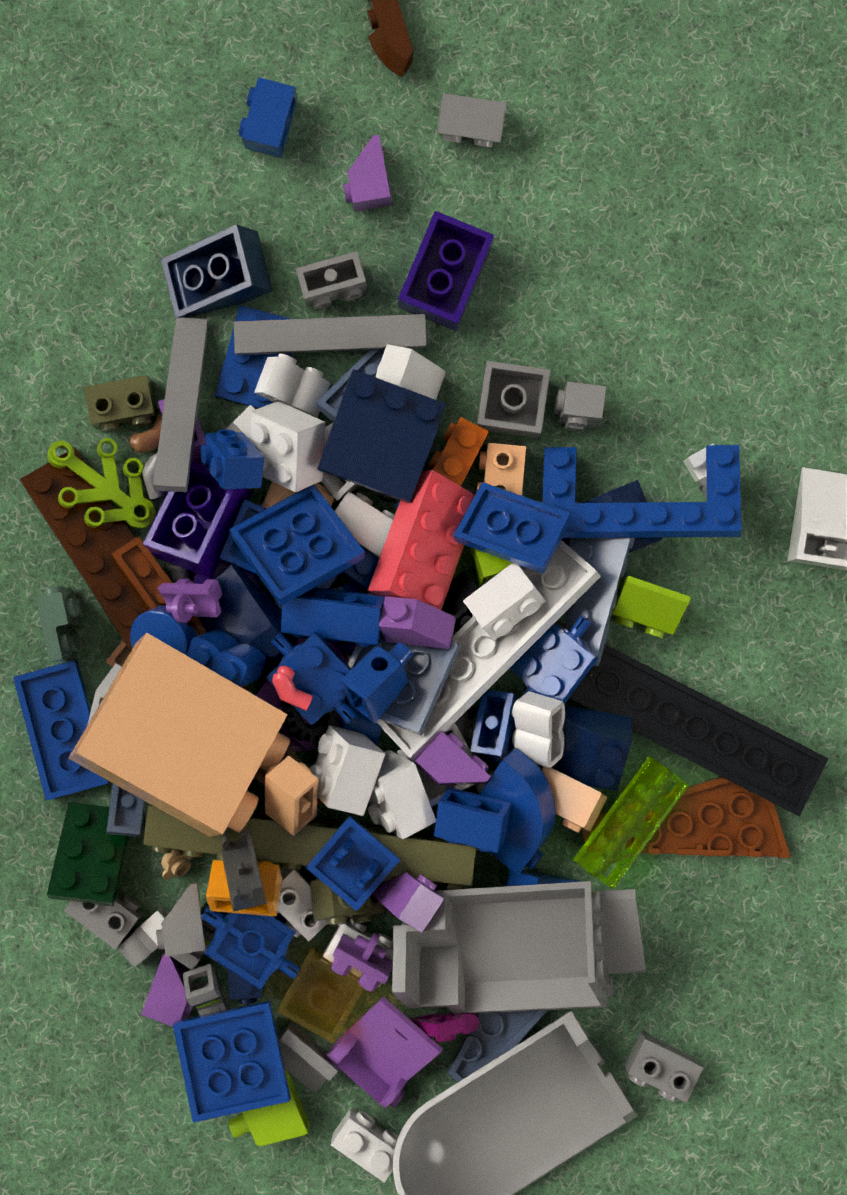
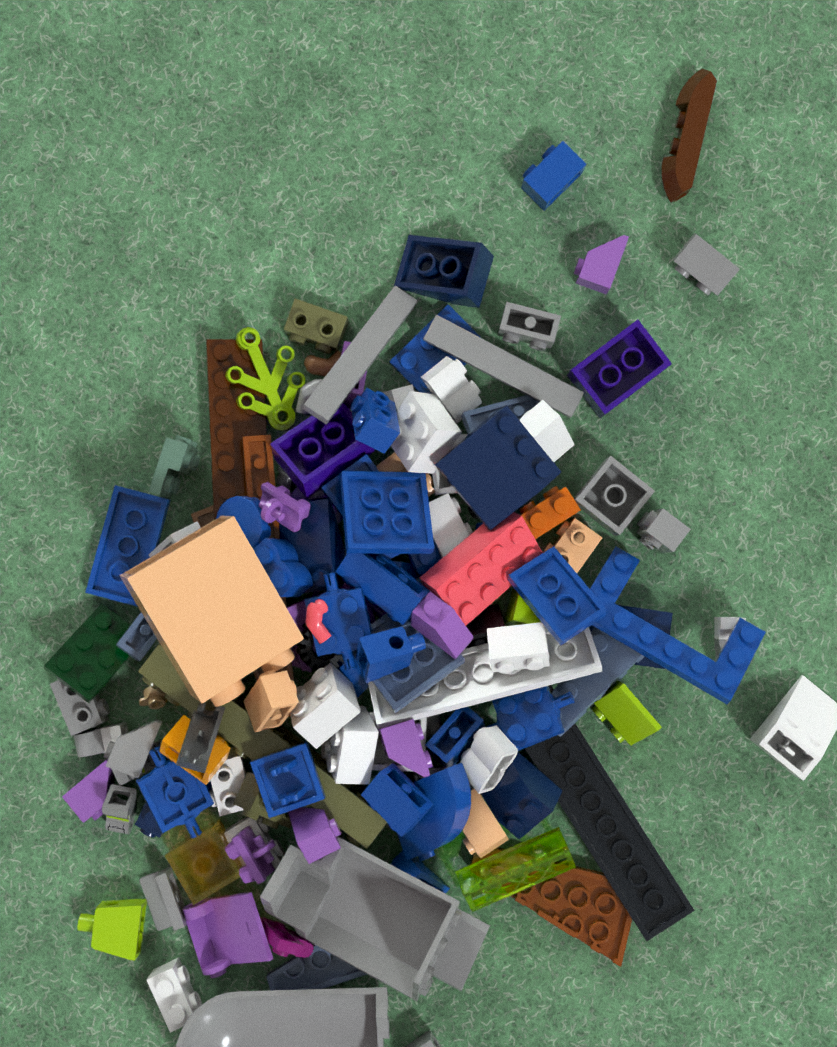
camera: 30 degrees right, 0 degrees up
(231, 1061) = (109, 873): blue plate -> none

